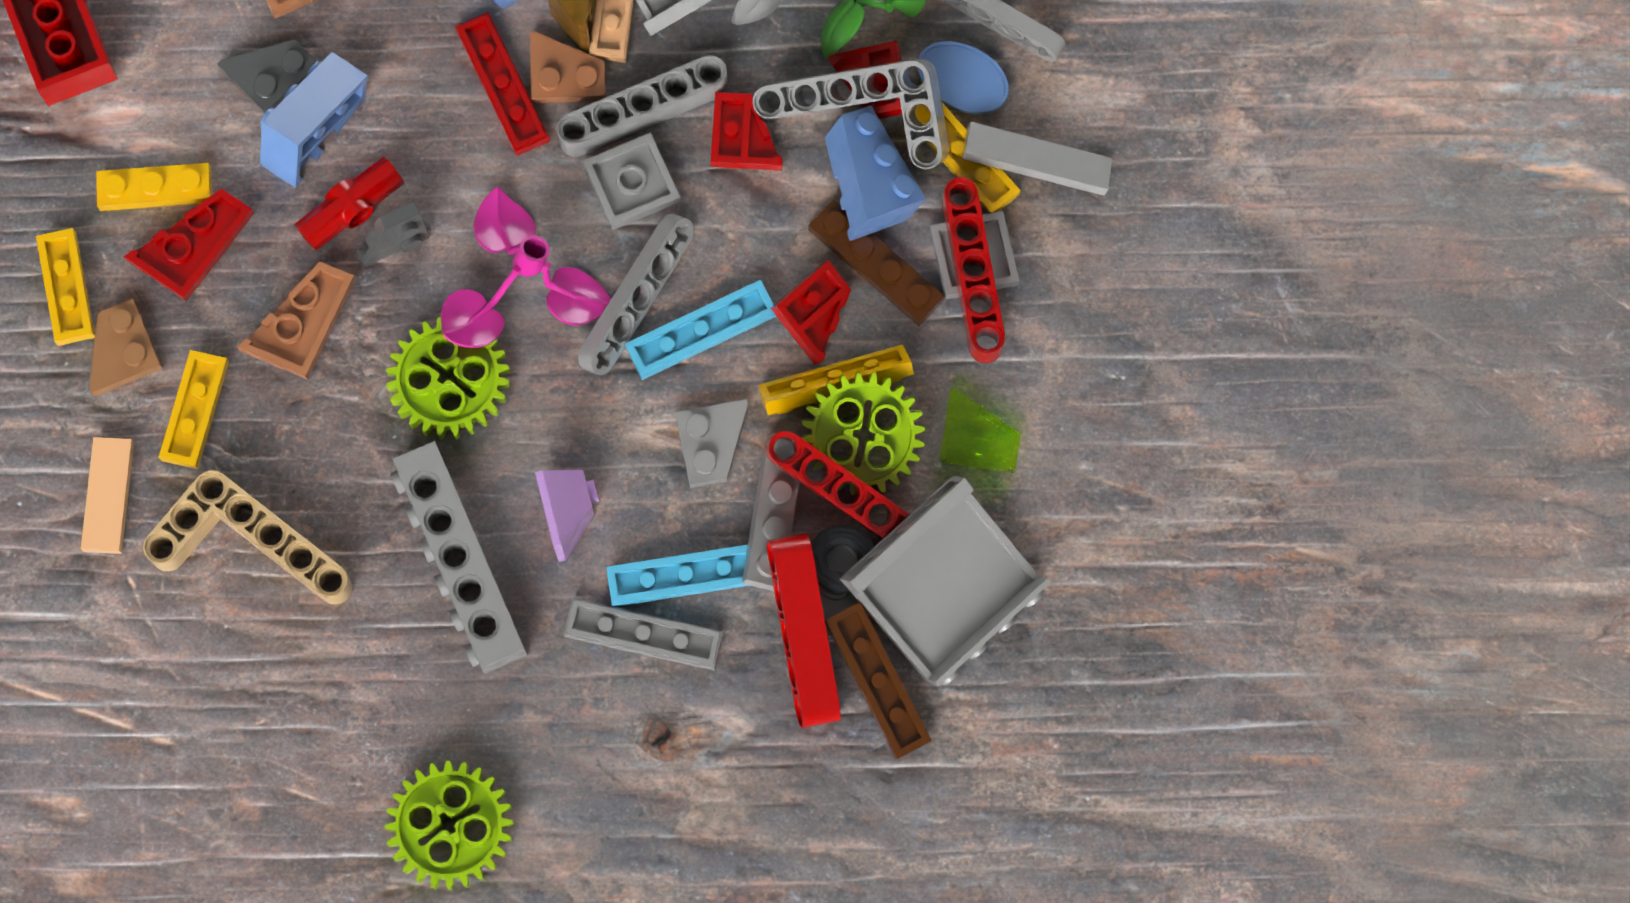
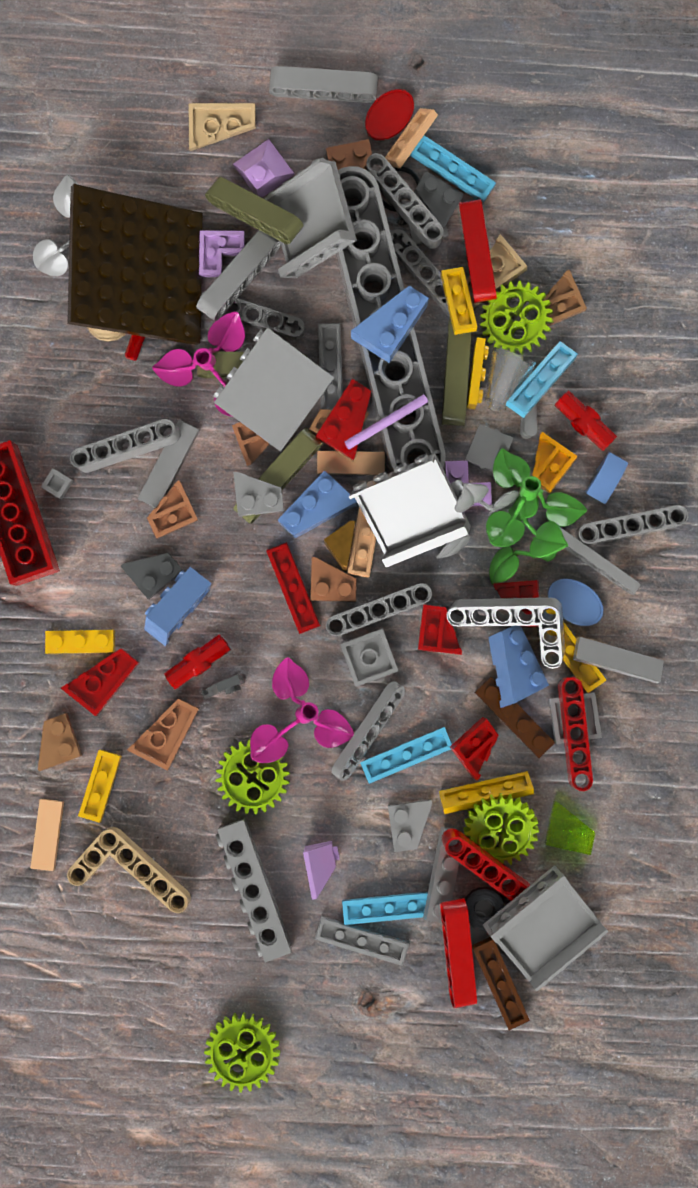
camera: 10 degrees right, 10 degrees up
(65, 286) = (25, 703): yellow plate -> none

